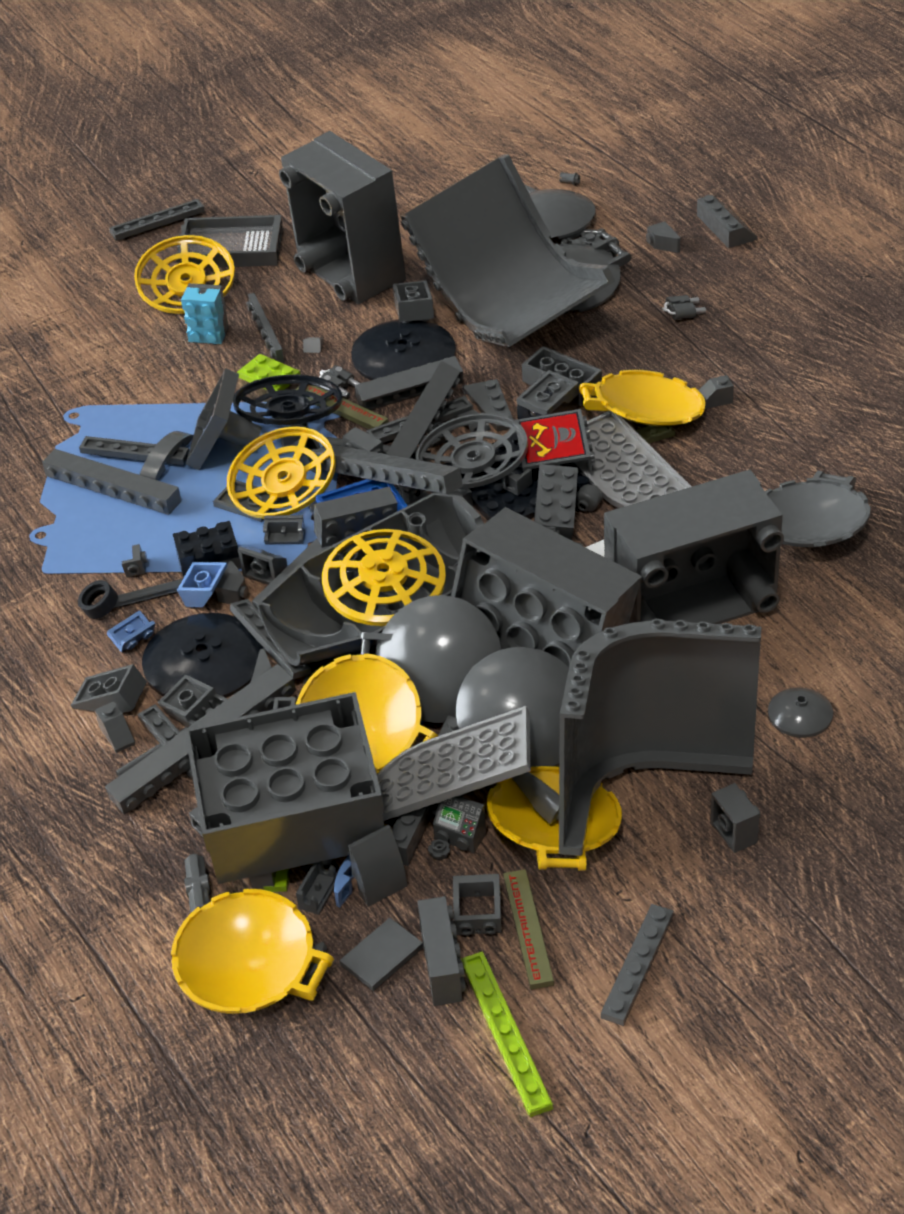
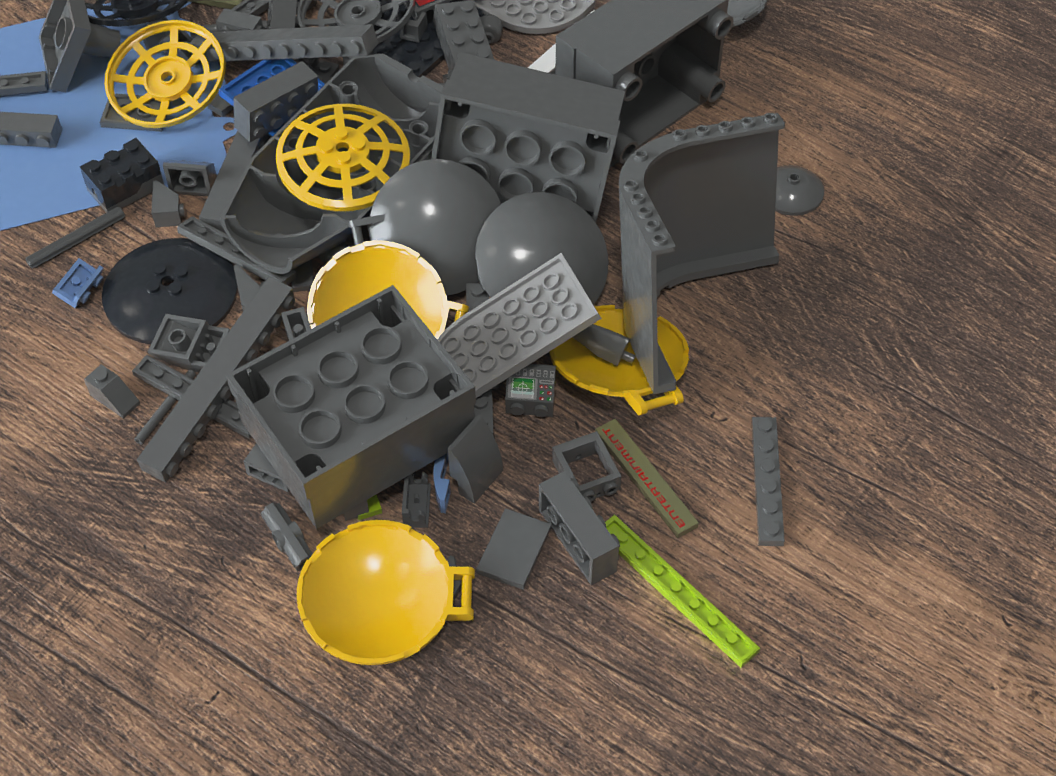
camera: 25 degrees left, 10 degrees up
(91, 592) = (13, 251): black tyre -> none
(117, 685) = (84, 351): dark grey slope -> none
(136, 565) = (48, 211): dark grey bracket -> none
(162, 452) = (20, 82): dark grey slope -> none
(200, 582) = (134, 211): medium blue slope -> none
(284, 529) = (193, 133): dark grey hinge -> none
(439, 849) = (518, 427): dark grey plate -> none
(734, 817) = (792, 309): dark grey brick -> none

